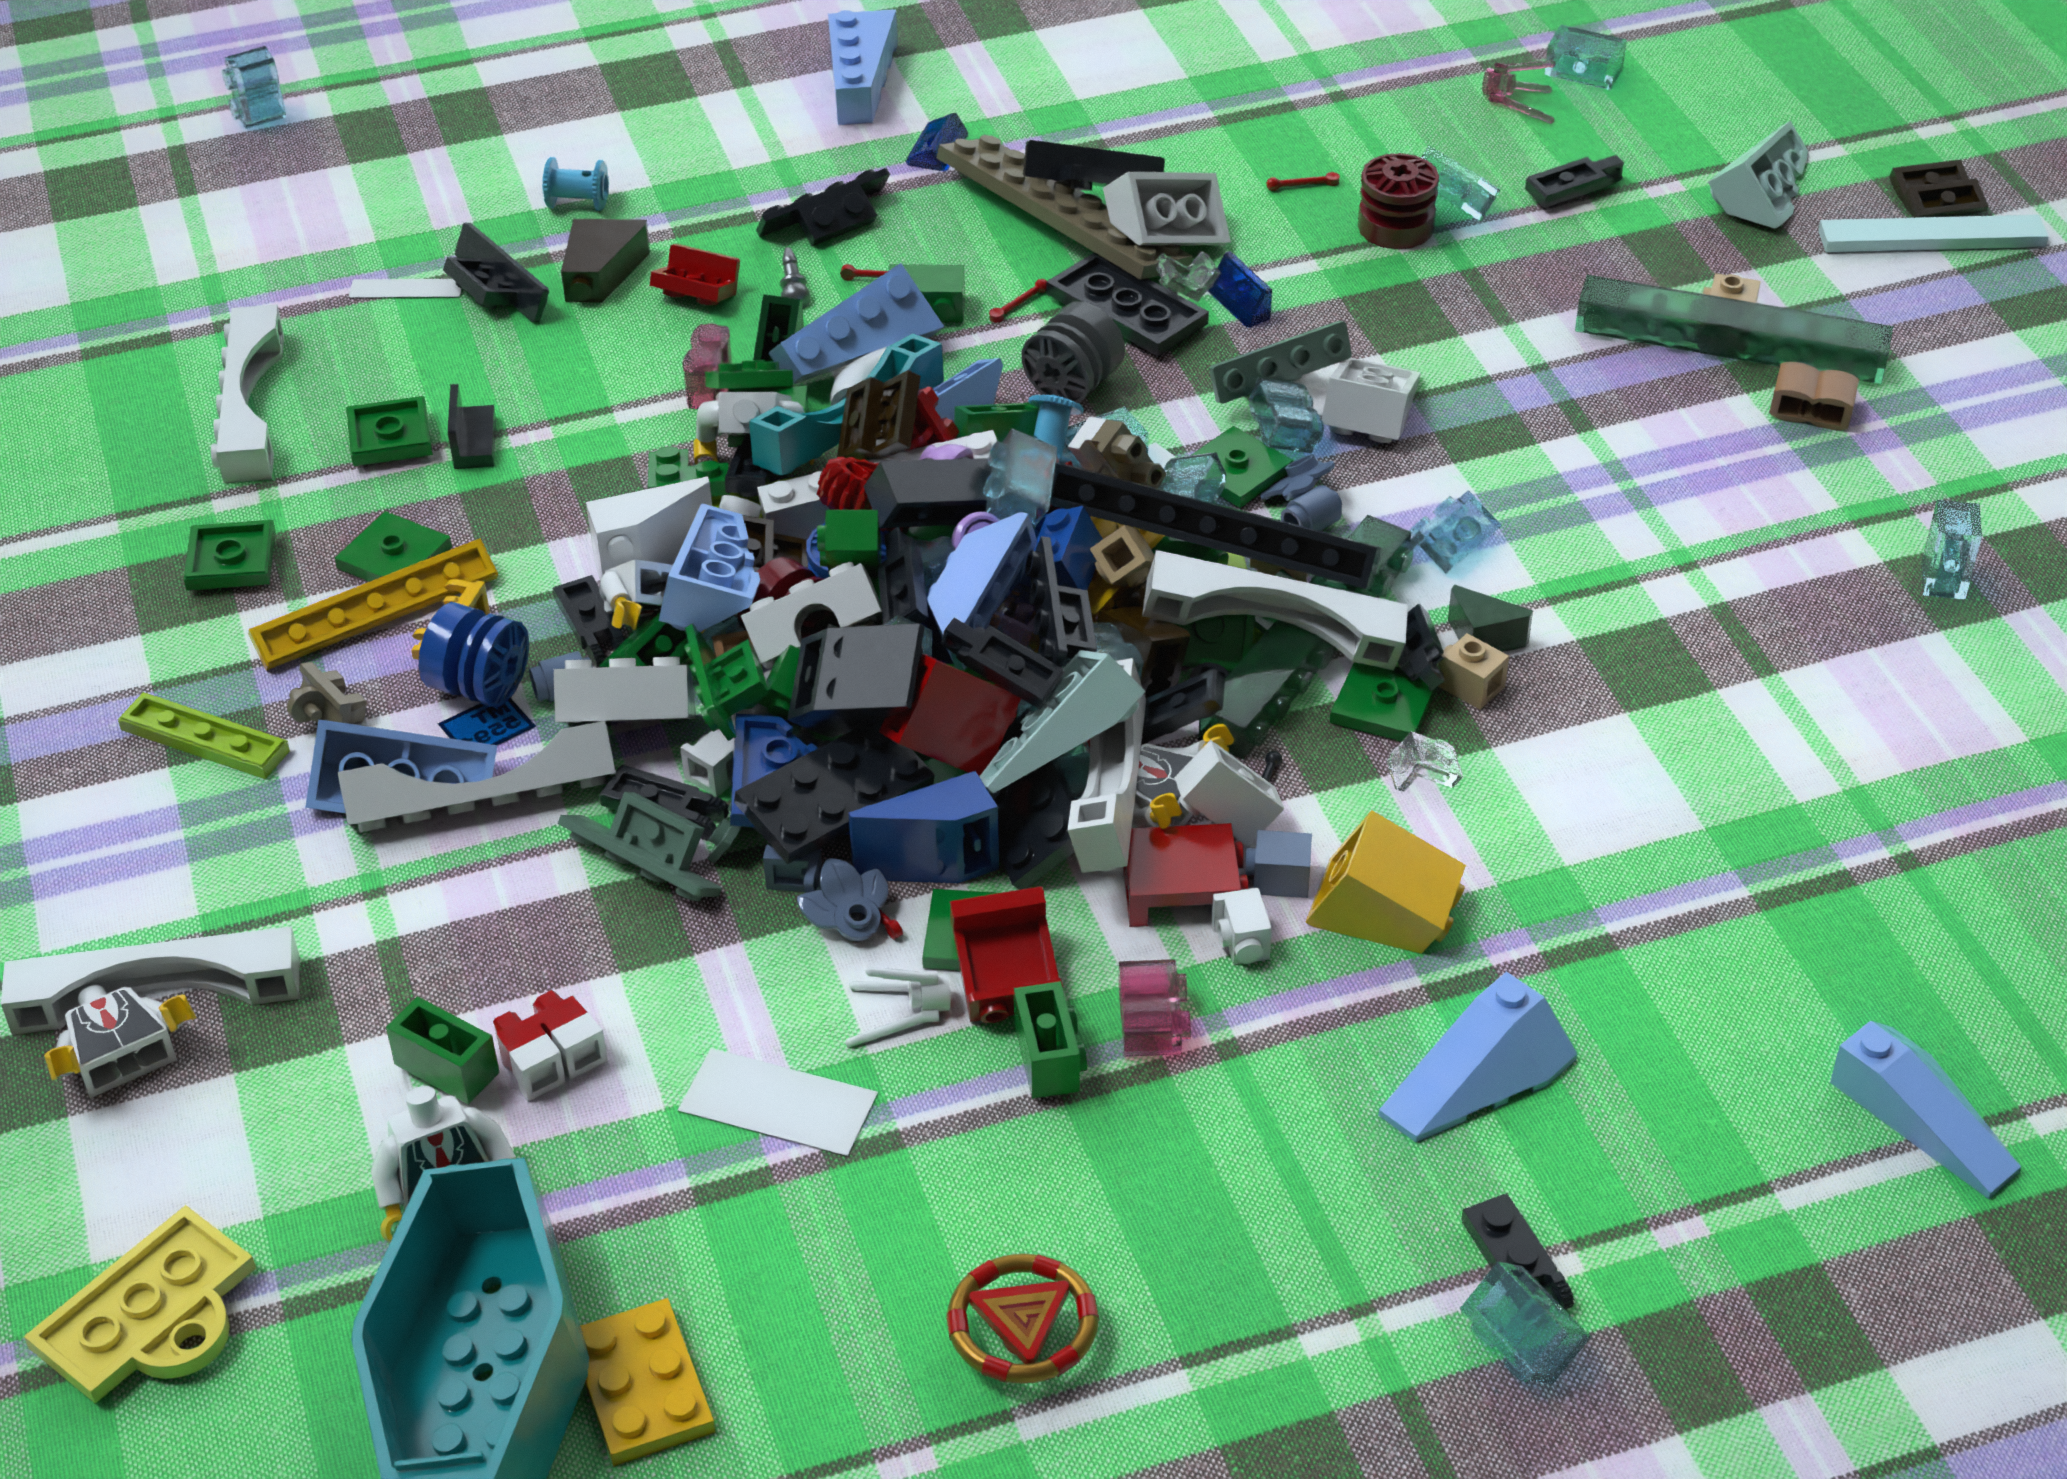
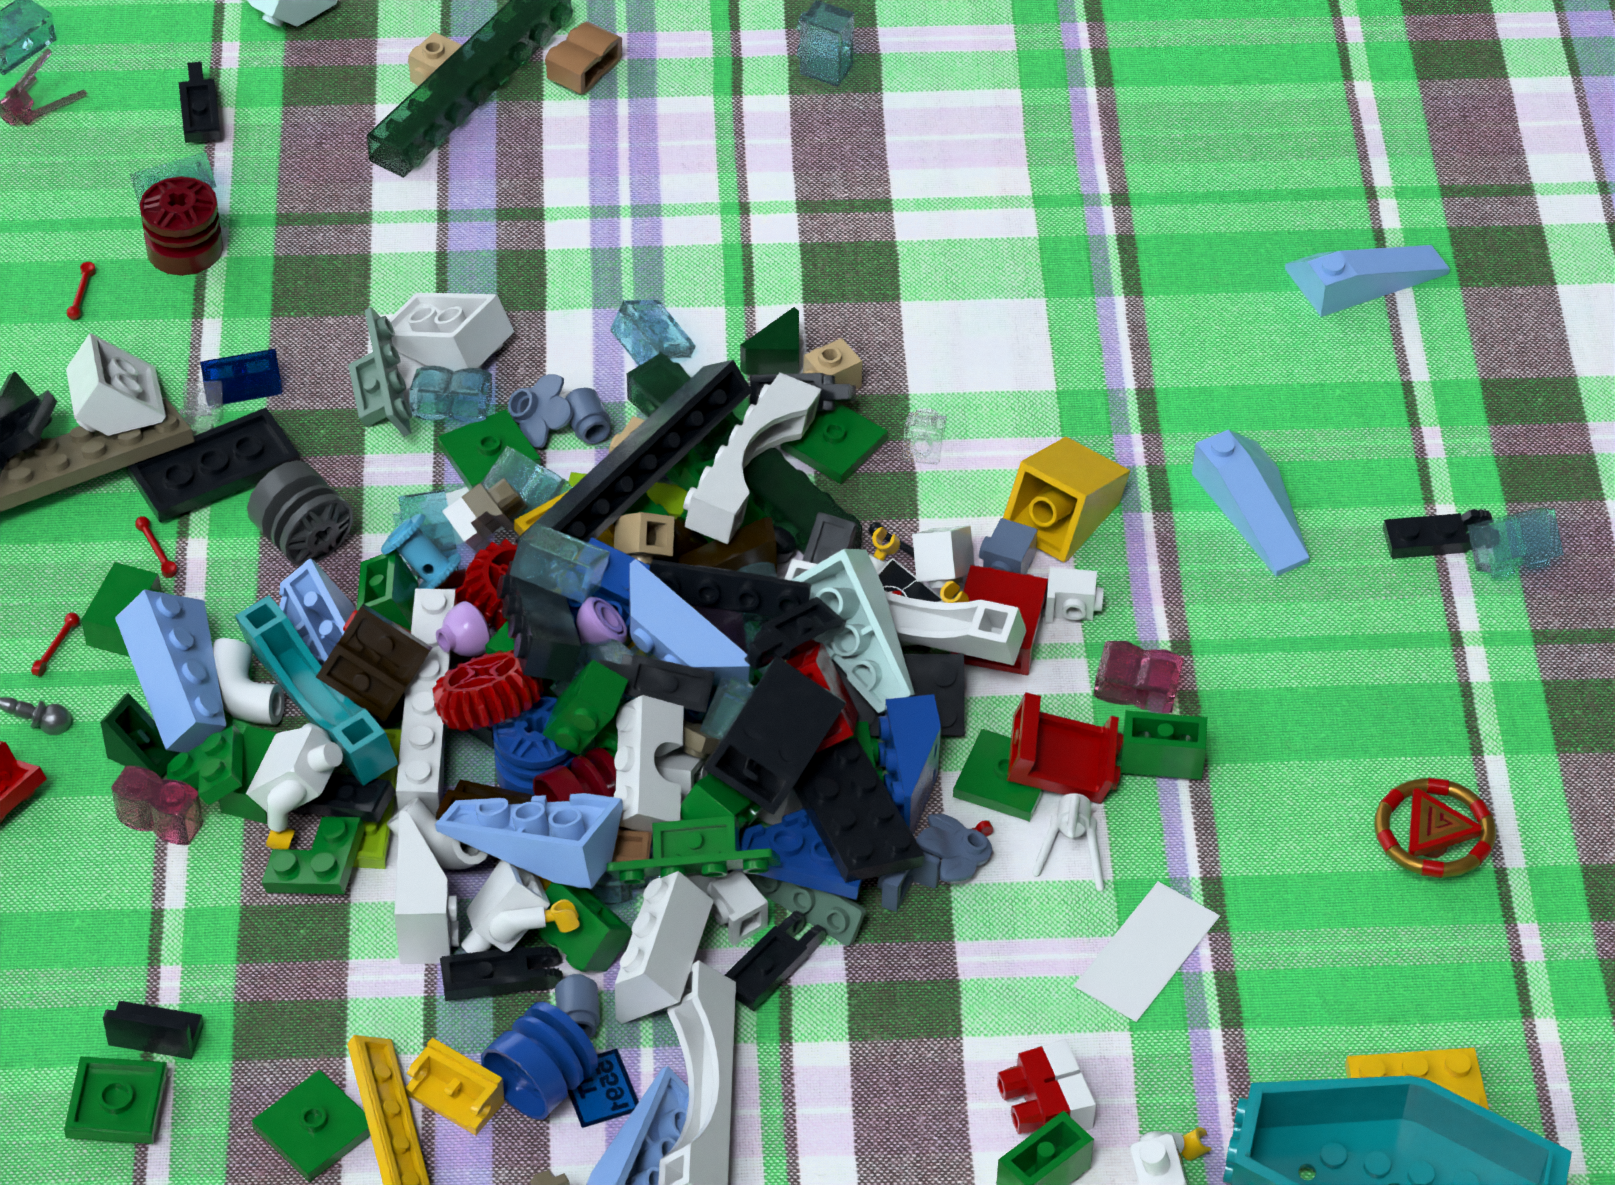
camera: 75 degrees left, 5 degrees up
(650, 839) = (827, 974): sand green bracket -> none

